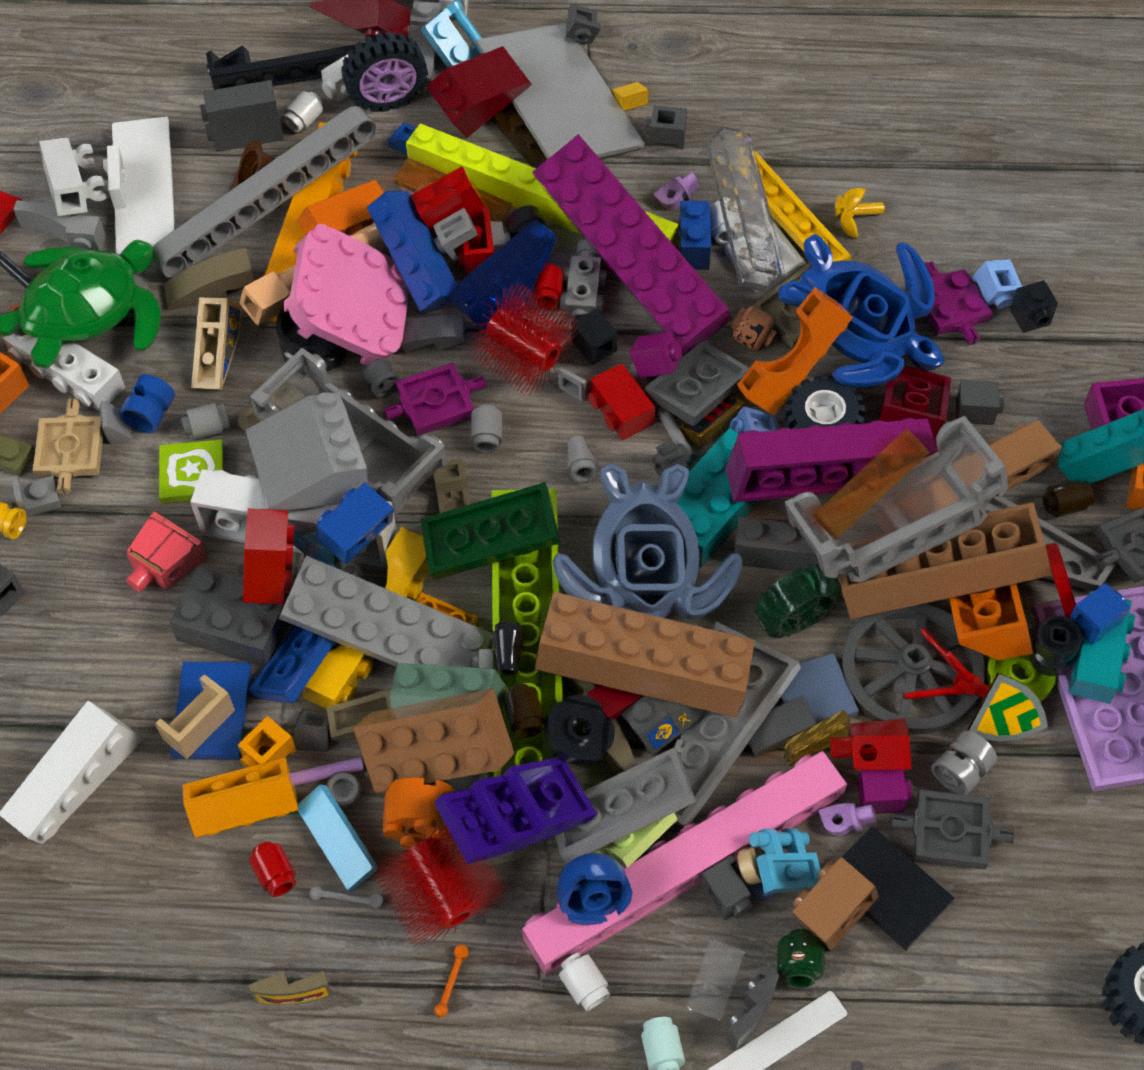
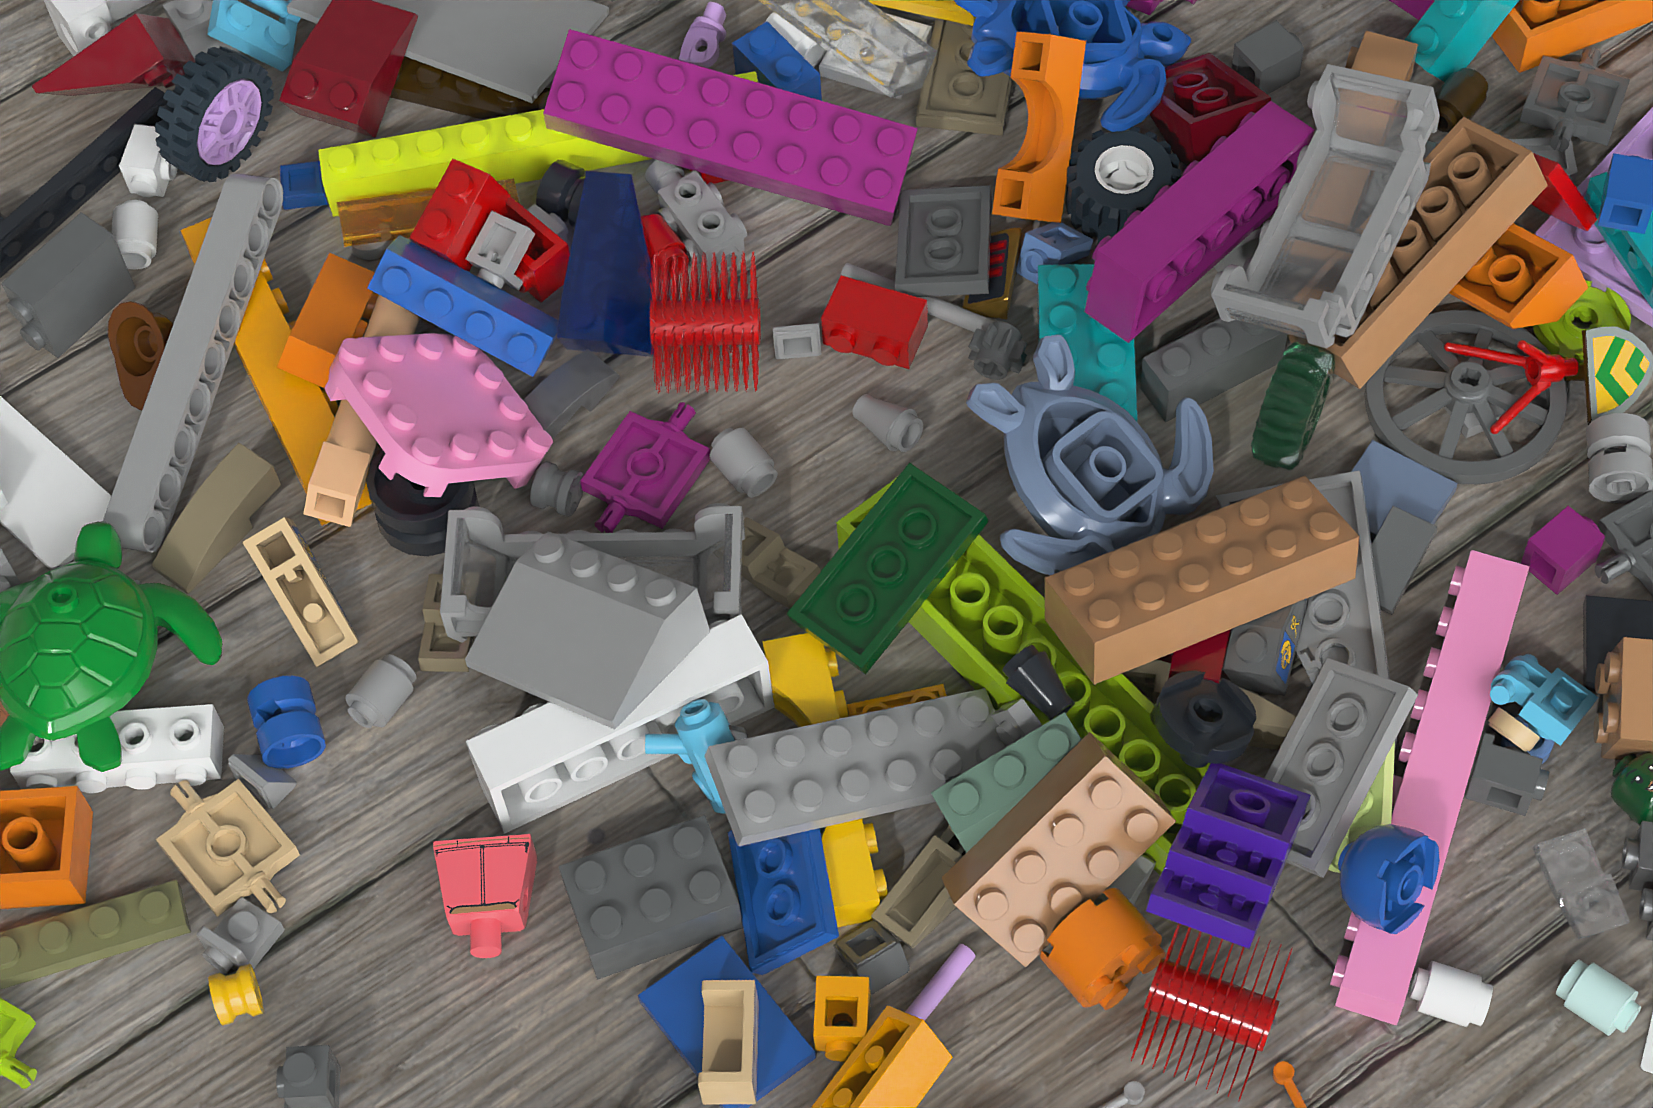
camera: 35 degrees left, 0 degrees up
(181, 467) = (416, 766): lime tile -> none
(267, 556) = (654, 784): red brick -> none
(337, 837) = (1025, 1054): medium azure tile -> none
(345, 789) = (975, 998): light grey tile -> none
(354, 522) = (733, 665): blue brick -> none
(524, 711) = (1129, 738): dark brown brick -> none
(594, 336) = (779, 266): black brick -> none
(655, 354) = (872, 238): magenta brick -> none
(753, 328) = (946, 138): nougat head -> none
(816, 738) = (1444, 544): clear yellow tile -> none
(852, 817) = (1556, 600): lavender piece -> none
(870, 484) = (1282, 212): clear orange tile -> none
(888, 745) = (1521, 502): red torso -> none
(1055, 645) = (1607, 258): black wheel -> none

